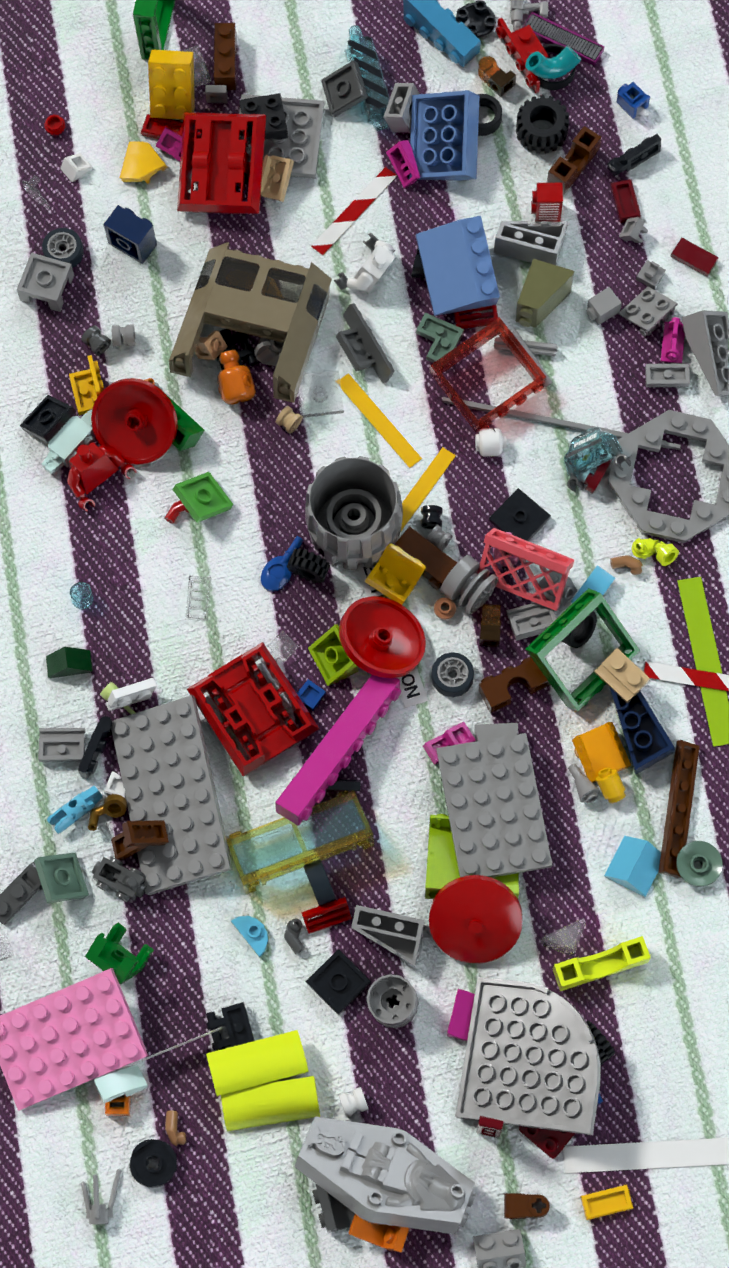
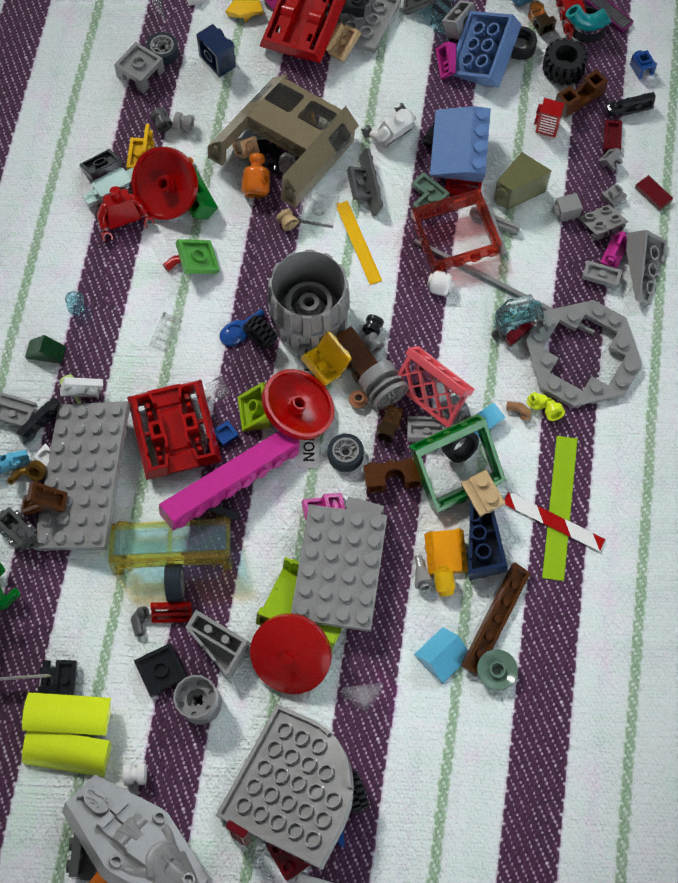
camera: 15 degrees right, 5 degrees down
(253, 932) = (107, 607): medium azure plate -> none
(353, 211) = (395, 85): sticker -> none
(425, 484) = (376, 301): yellow sticker -> none
(461, 1015) = (251, 731): dark pink slope -> none
(520, 516) = (445, 346): black plate -> none
(530, 241) = (518, 138): light grey wedge -> none
(606, 963) = (396, 727): neon yellow arch -> none

